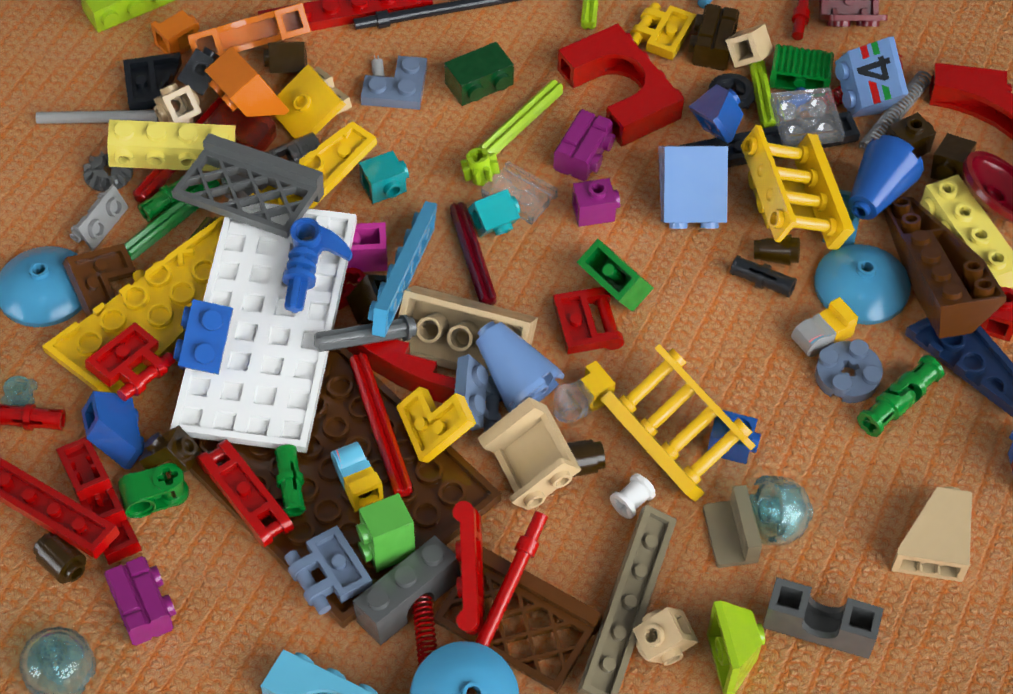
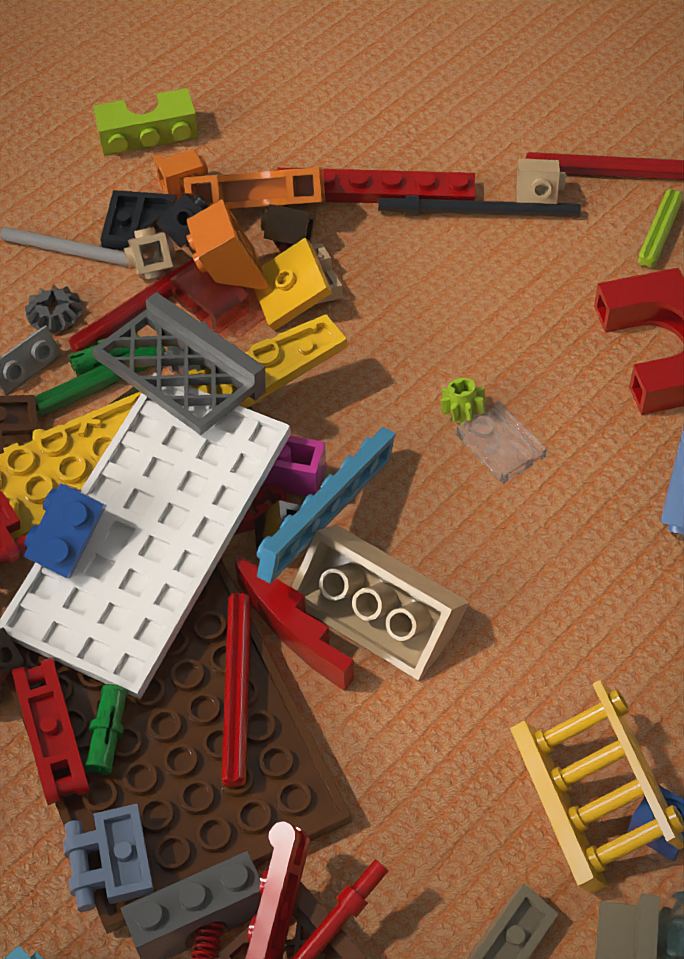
camera: 20 degrees right, 0 degrees up
(160, 143) = (111, 291): light yellow brick -> none
(297, 148) = (259, 330): dark grey hinge -> none
(304, 257) = (209, 464): blue piece -> none
(357, 475) = (184, 746): leg -> none
(377, 67) = (388, 259): light grey piece -> none
(383, 176) = (349, 386): teal brick -> none
(386, 532) = (184, 832): bright green brick -> none
(400, 91) = (404, 291): sand blue plate -> none
(400, 328) = (245, 573): dark grey axle -> none
(432, 427) = (293, 710): yellow plate -> none
(472, 253) = (421, 504): dark red axle -> none
(477, 387) = (353, 680): sand blue plate -> none
(479, 73) = (499, 291): dark green brick -> none
(495, 213) = (461, 461): teal brick -> none
(516, 365) = (418, 660): medium blue cone -> none
(523, 117) = (533, 354): lime axle -> none
(531, 453) = (403, 775): tan panel -> none
(578, 324) = (517, 620): red plate -> none
(583, 145) = (594, 403): magenta brick -> none
(583, 396) = (492, 717): leg -> none
(588, 455) = (462, 796): dark brown brick -> none
(594, 202) = (585, 475): magenta brick -> none
(615, 275) = (579, 573): green brick -> none
(632, 496) = (513, 865): white bush -> none

